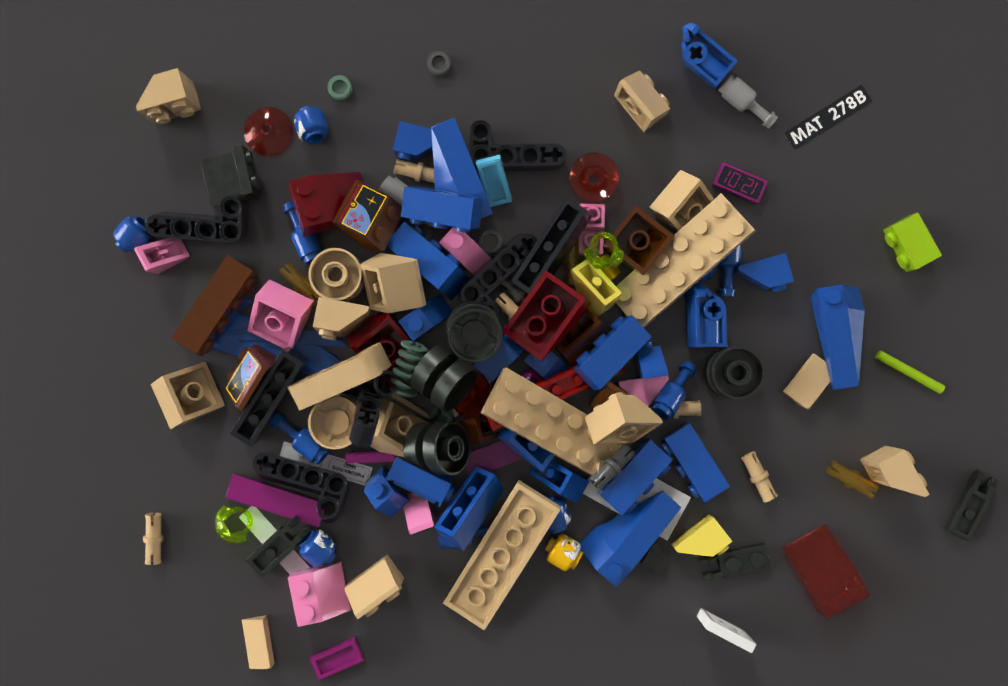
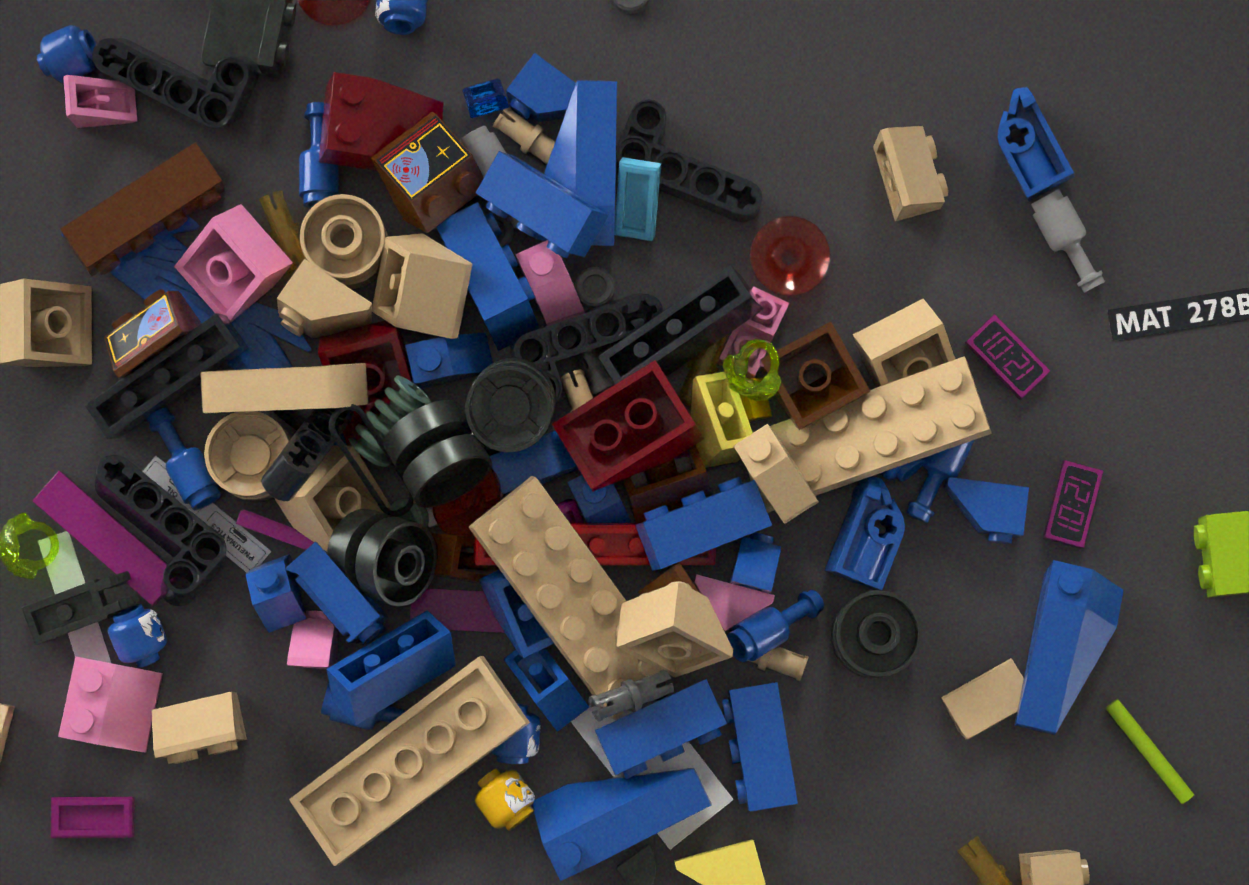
camera: 25 degrees right, 5 degrees down
(382, 159) = (485, 98): none -> clear blue tile
(641, 306) = (776, 473): none -> tan slope
(759, 476) = (851, 811): tan pin -> none
(811, 251) = (1073, 504): none -> tile

